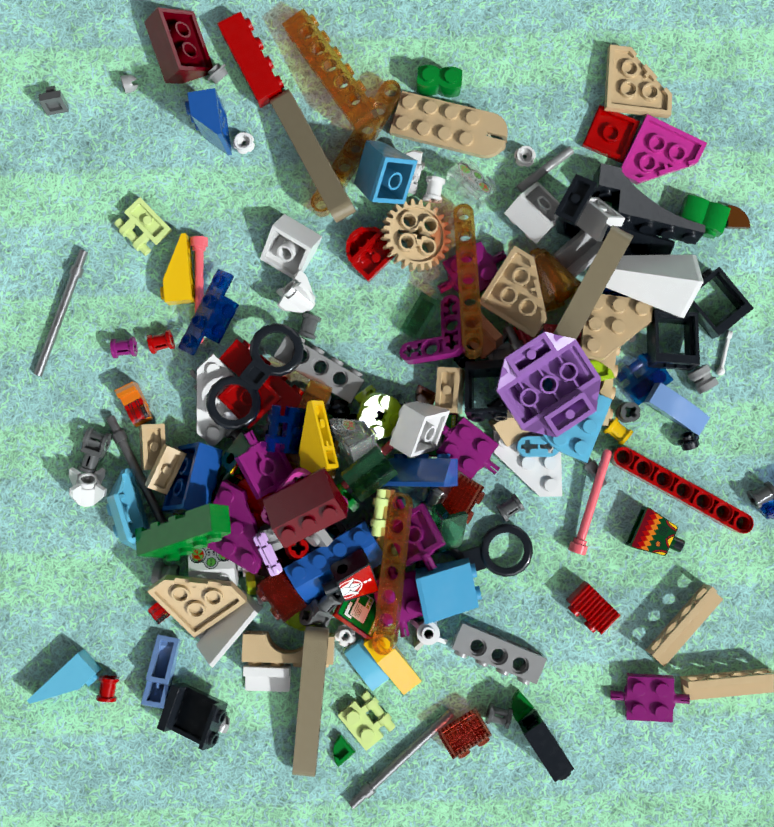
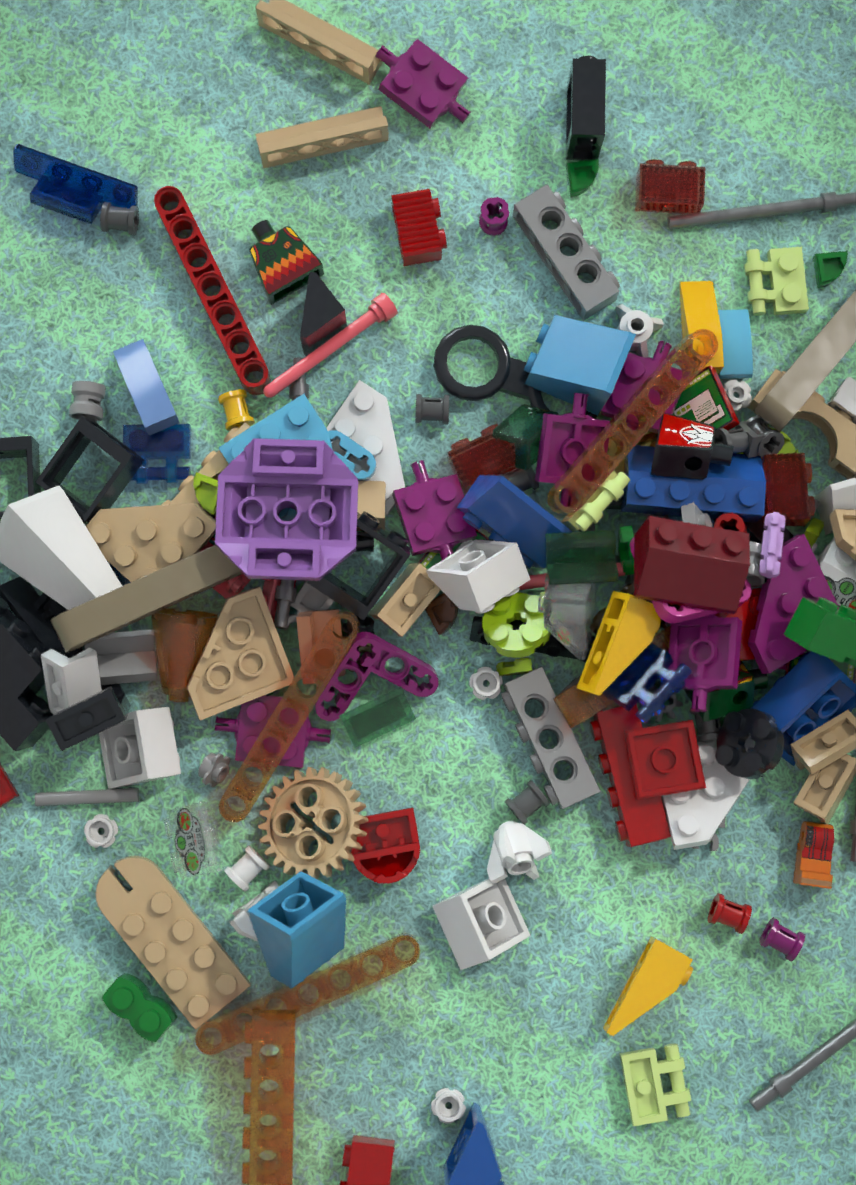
camera: 150 degrees left, 5 degrees down
(199, 246) = (598, 1006): coral piece -> none
(199, 444) = (732, 739): none -> black plate
(212, 314) = (643, 901): clear blue bracket -> none
(254, 376) = (641, 779): black bar -> none
(312, 156) = (373, 1020): dark tan beam -> none
(339, 409) = (560, 671): black plate -> none
(374, 369) = (479, 690): none -> white plate
(488, 228) = (214, 769): none -> light grey plate
(506, 713) = (615, 180): dark grey bush -> none
(558, 650) = (491, 207): none -> magenta bush
(610, 514) = (321, 316): none -> black slope
(635, 412) = (198, 420): dark grey bush -> none
(688, 441) = (159, 340): black plate -> none
(720, 370) = (57, 397): white hinge -> none

